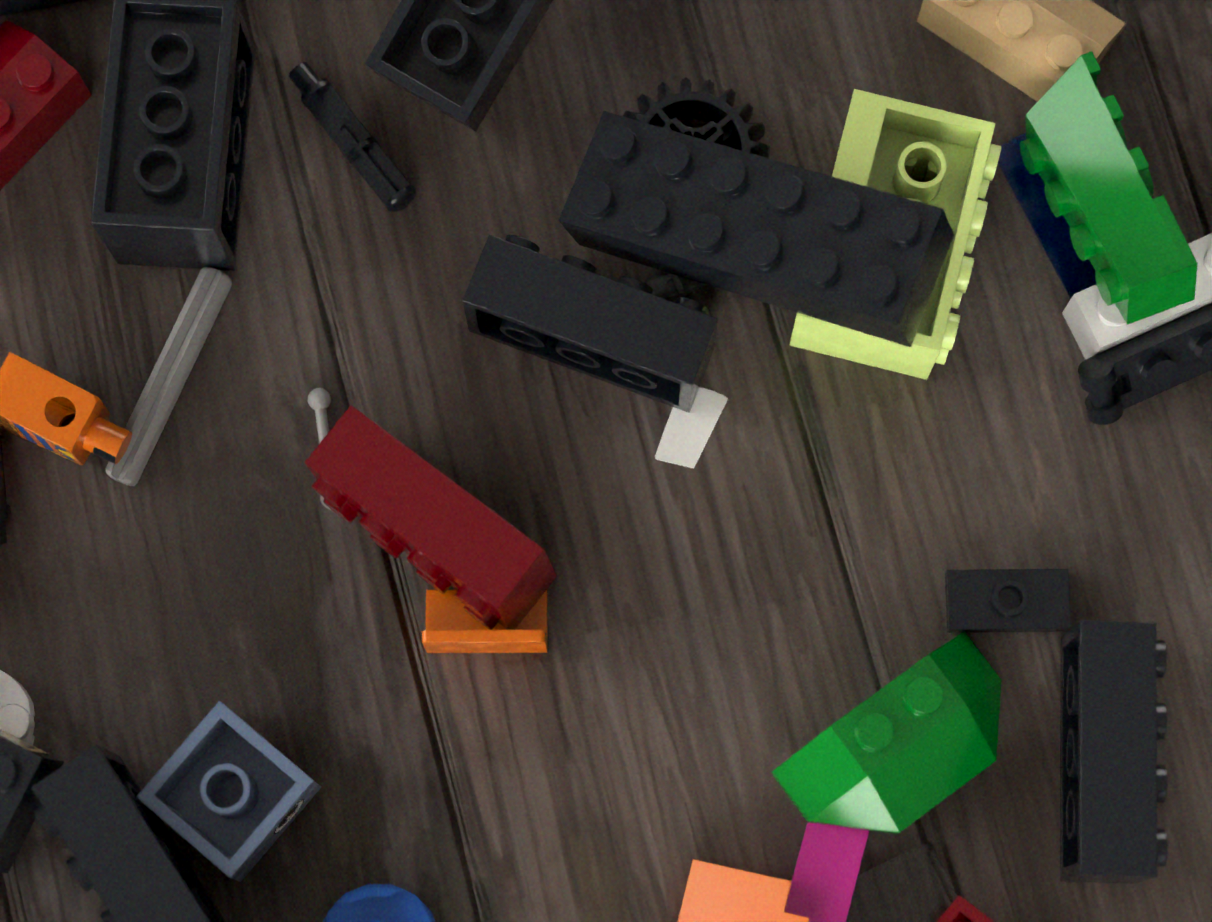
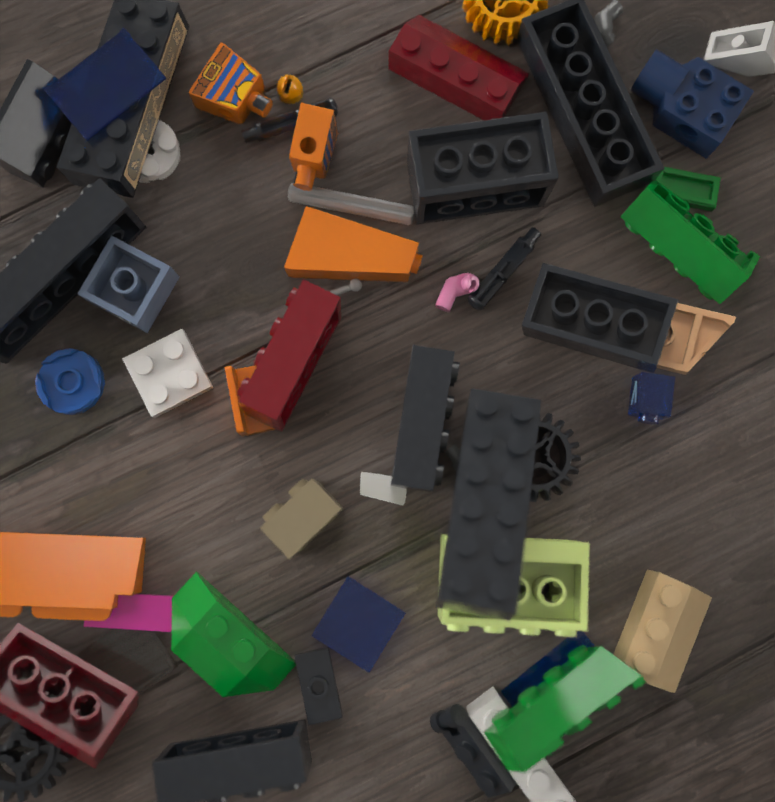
camera: 75 degrees right, 5 degrees up
(255, 397) = (348, 250): none -> orange slope
(364, 226) = (455, 287): none -> bright pink arm
(404, 762) = (167, 373): none -> white plate
(715, 558) = (301, 517): none -> dark tan brick
(915, 512) = (358, 624): none -> clear blue tile

